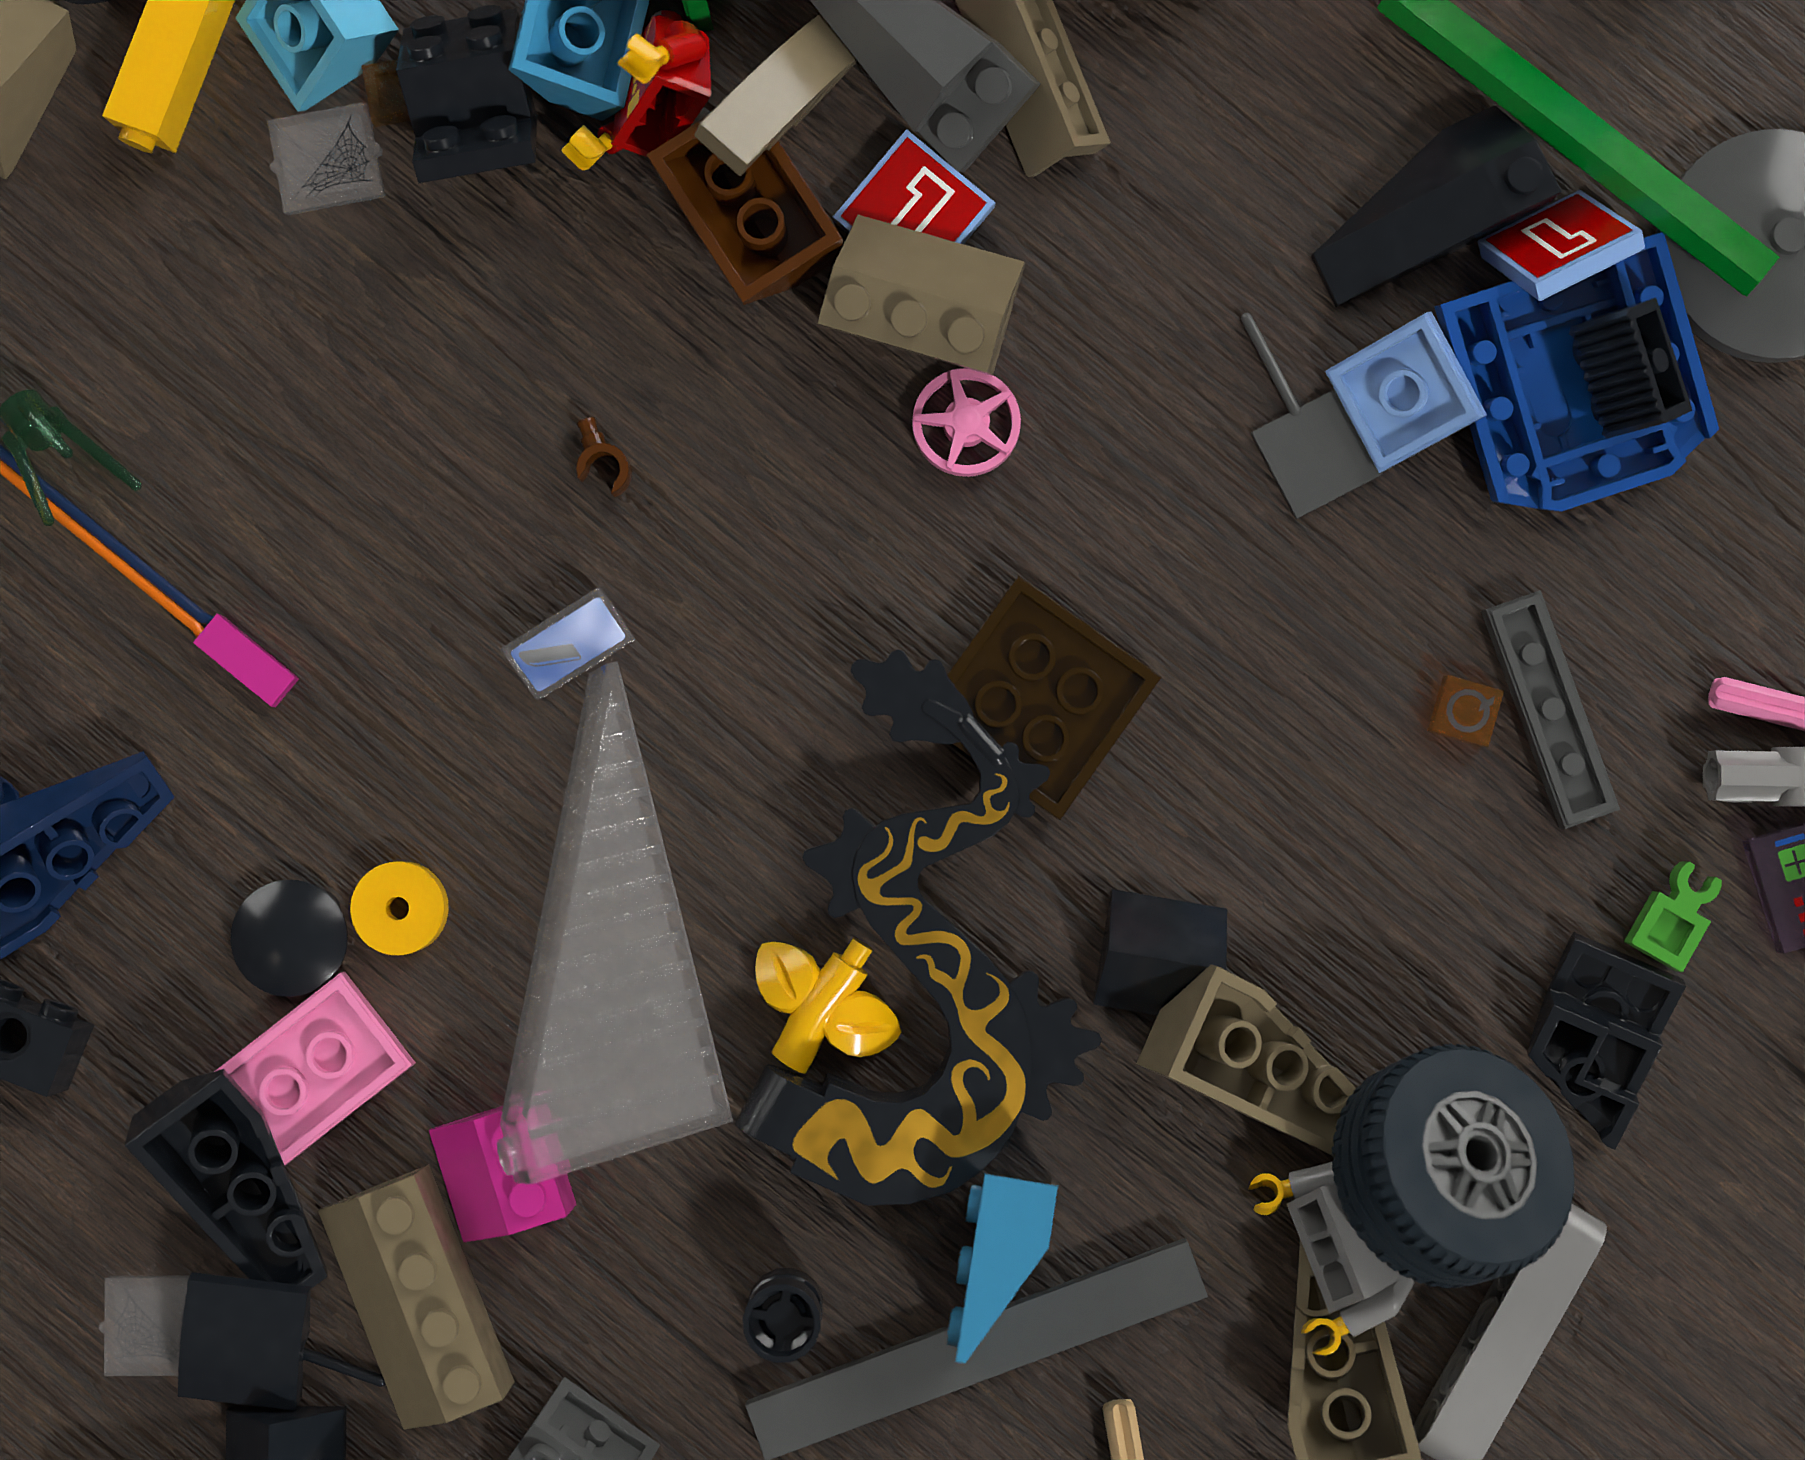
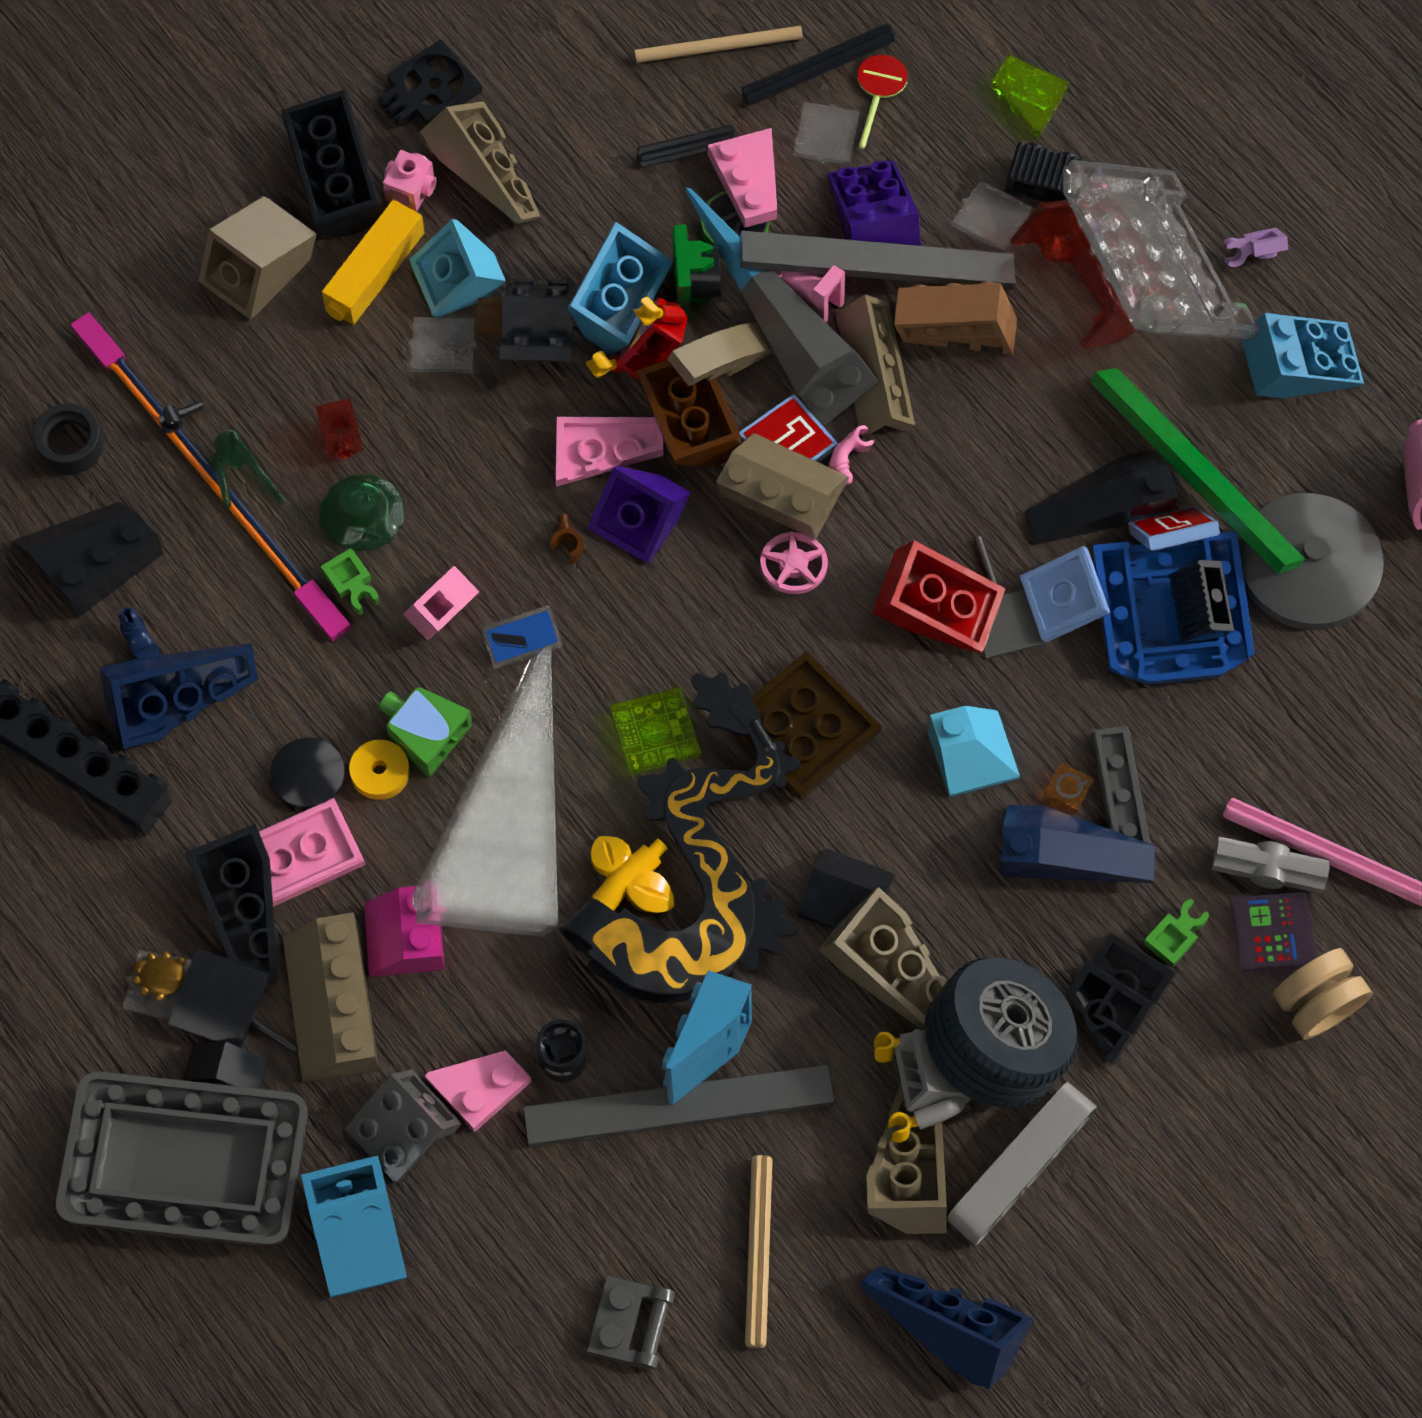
camera: 10 degrees right, 20 degrees down
(145, 1318) = (159, 975): none -> pearl gold piece
(175, 334) = (339, 416): none -> clear red brick
(272, 600) = (350, 577): none -> bright green plate
(273, 507) = (361, 523): none -> clear green hat
(430, 614) = (441, 603): none -> bright pink slope
(450, 830) = (425, 726): none -> bright green torso
(619, 285) = (599, 443): none -> bright pink wing
(671, 1382) = (479, 1086): none -> bright pink wing
(703, 390) = (638, 511): none -> dark purple slope
(810, 752) = (655, 730): none -> clear neon green tile
(1003, 232) = (839, 459): none -> bright pink piece
(1206, 440) = (938, 598): none -> red slope
(1307, 683) = (971, 749): none -> medium azure slope
(1479, 813) = (1061, 846): none -> dark blue wedge

